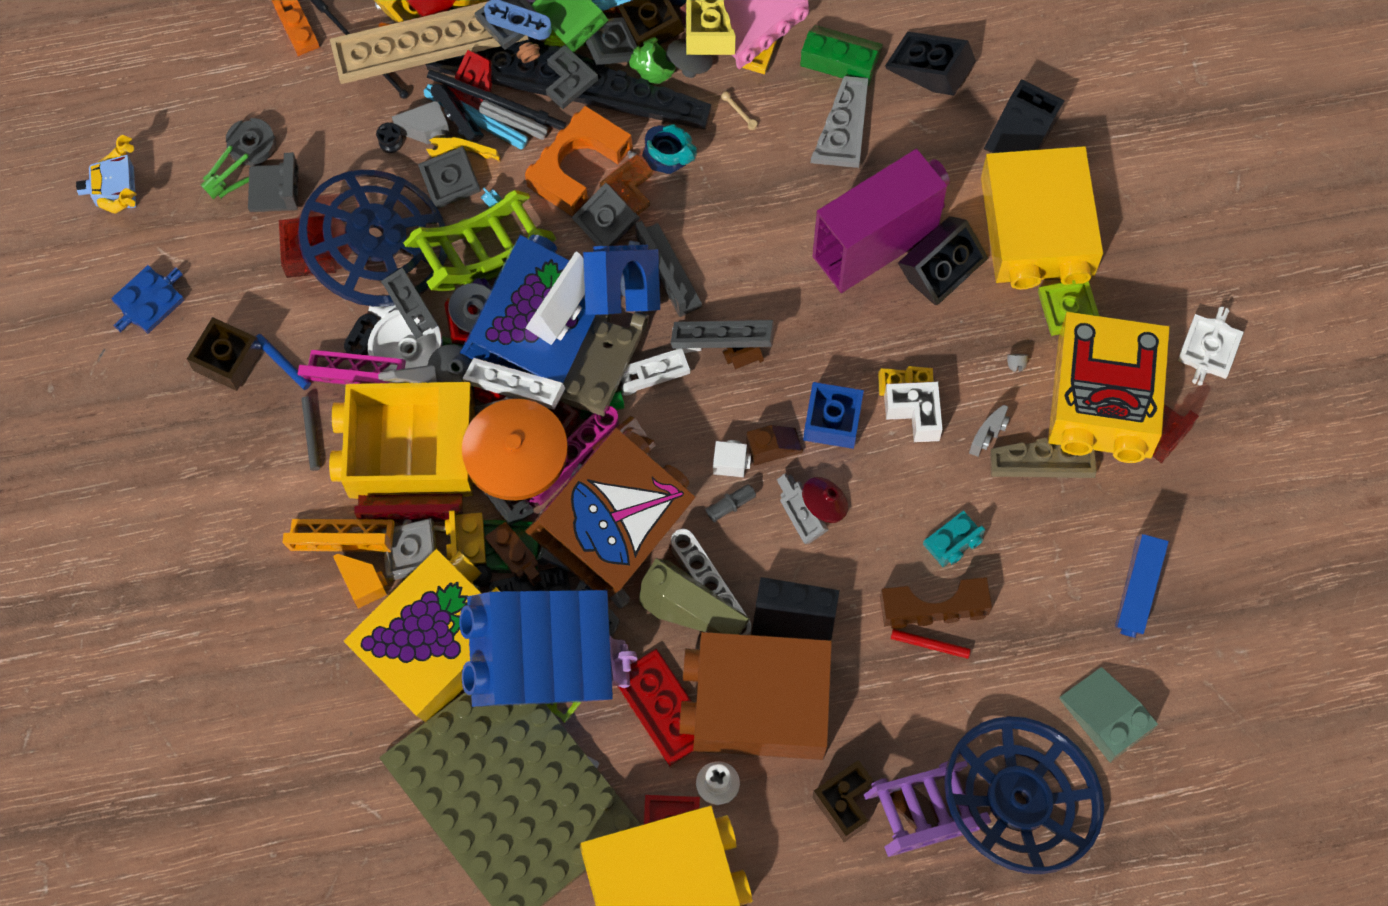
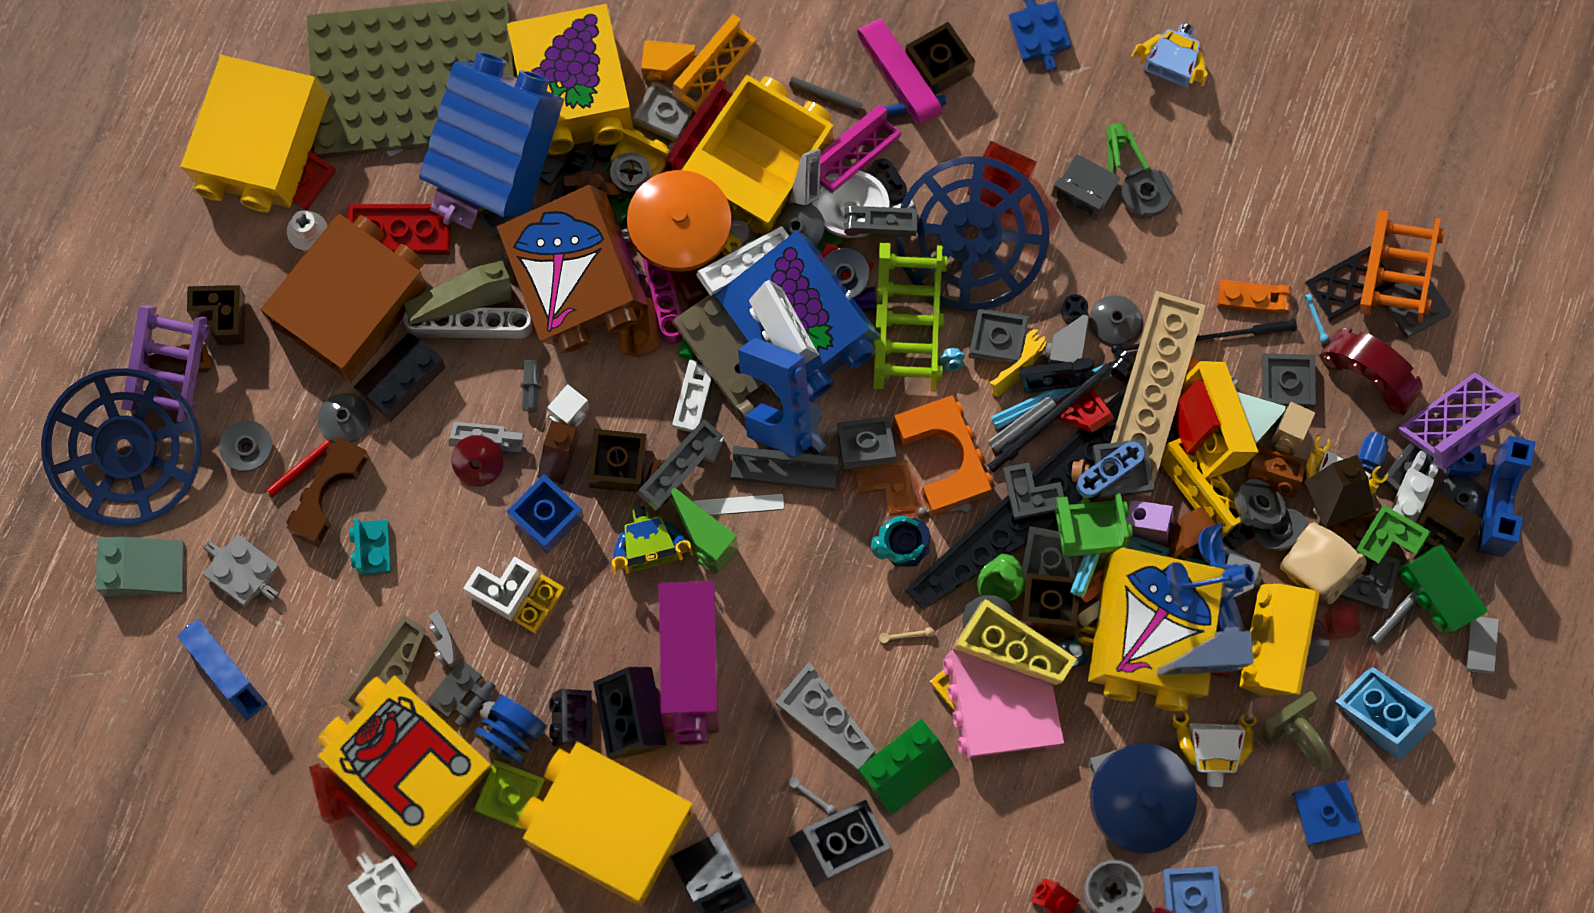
camera: 120 degrees right, 5 degrees up
(255, 380) = (899, 72): none -> dark pink beam
(372, 117) = (1111, 330): none -> dark grey dish
(416, 78) = (1122, 365): none -> black wheel
(495, 518) = (639, 165): none -> dark grey gear
(719, 289) = (741, 504): none -> white sticker
(750, 388) = (617, 460): none -> dark brown brick
(769, 278) = (708, 537): none -> bright green slope
(800, 326) = (648, 543): none -> torso
(861, 651) = (351, 427): none -> dark grey dish
(908, 121) = (794, 783): none -> light grey hinge
(949, 685) = (240, 435): none -> dark grey dish
(978, 300) = (571, 717): none -> black bracket
(1020, 401) = (455, 689): none -> dark grey plate
(1028, 329) = (509, 731): none -> blue wheel
(1049, 630) = (241, 570): none -> light grey plate
(1170, 382) = (376, 829): none -> red bar

